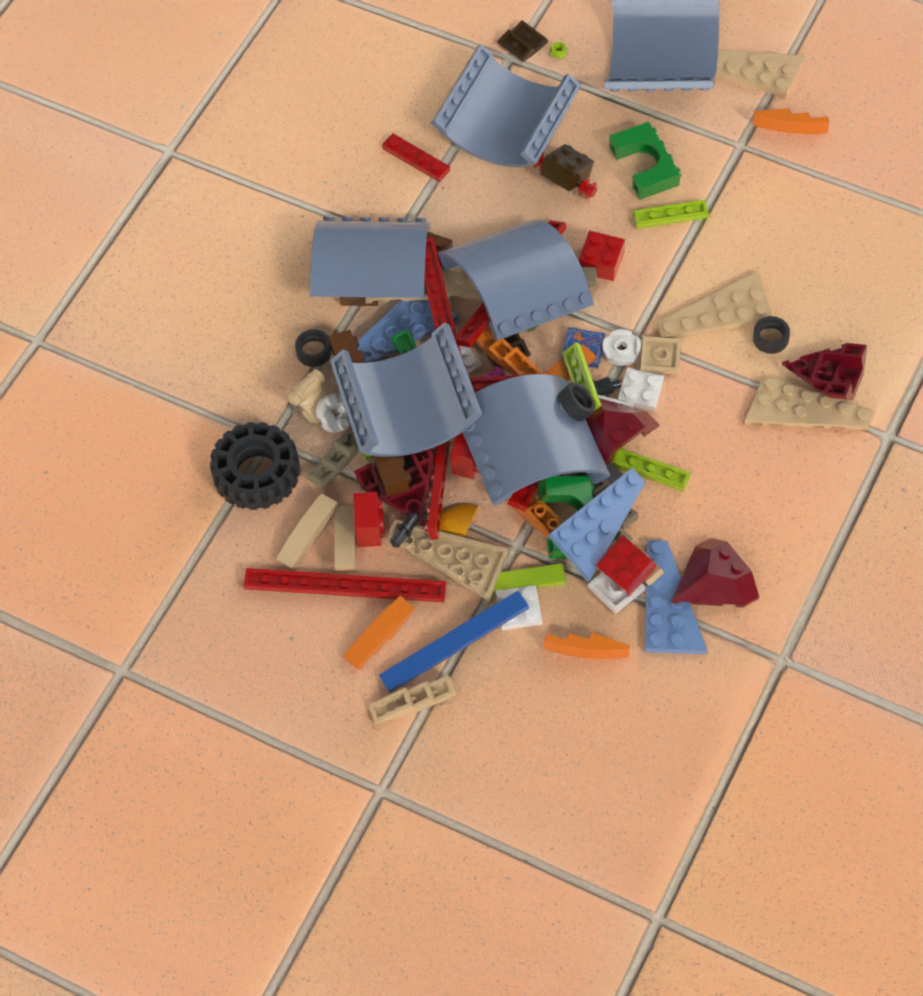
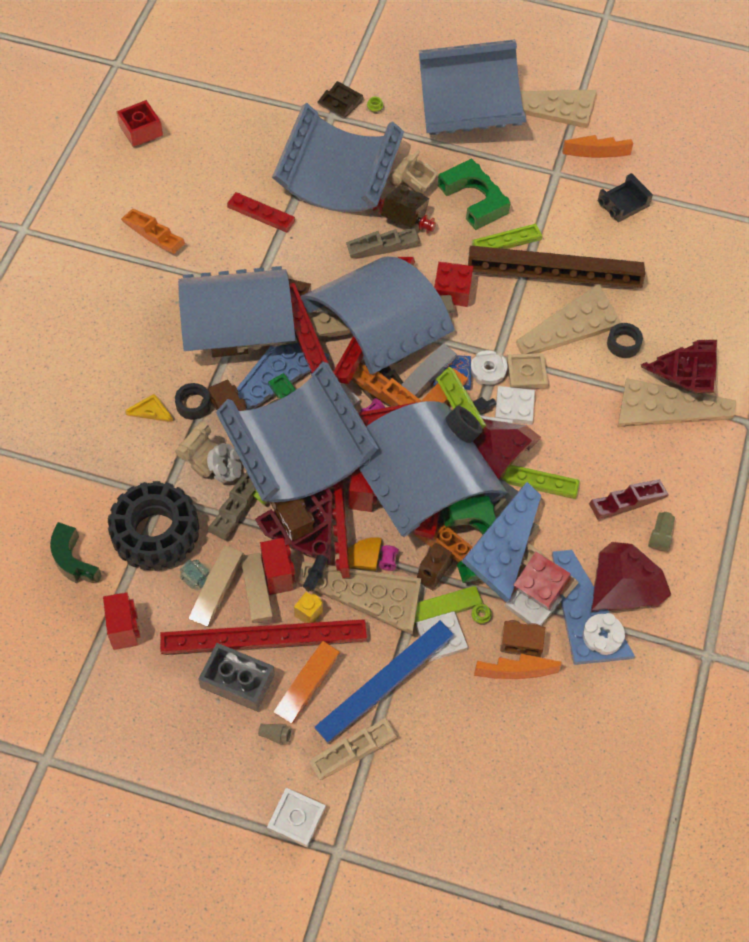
camera: 15 degrees left, 0 degrees up
(164, 474) = (62, 544): none -> dark green arch
(210, 552) = (121, 620): none -> red brick
(269, 350) = (150, 409): none -> yellow tile
(287, 517) = (194, 573): none -> clear light blue head
(300, 166) = (153, 231): none -> orange slope
(304, 48) = (139, 123): none -> red brick
(312, 618) = (236, 677): none -> dark grey brick
(342, 675) = (275, 732): none -> dark tan cone
(347, 753) = (296, 817): none -> white plate
(392, 563) = (308, 608): none -> yellow brick
(480, 526) = (388, 558): none -> dark pink bush
(526, 536) = (437, 563): none -> reddish brown torso
(532, 205) = (382, 243): none -> dark tan slope
(551, 348) = (429, 370): none -> light grey slope
(562, 586) = (481, 608): none -> lime plate
(584, 131) = (414, 173): none -> tan piece
(597, 619) = (522, 638): none -> dark orange brick
(678, 614) = (599, 643): none -> white plate
(715, 248) = (556, 266): none -> reddish brown brick
(742, 497) = (628, 499): none -> dark red slope
(762, 539) = (661, 535): none -> olive piece
(808, 182) = (625, 199): none -> black panel

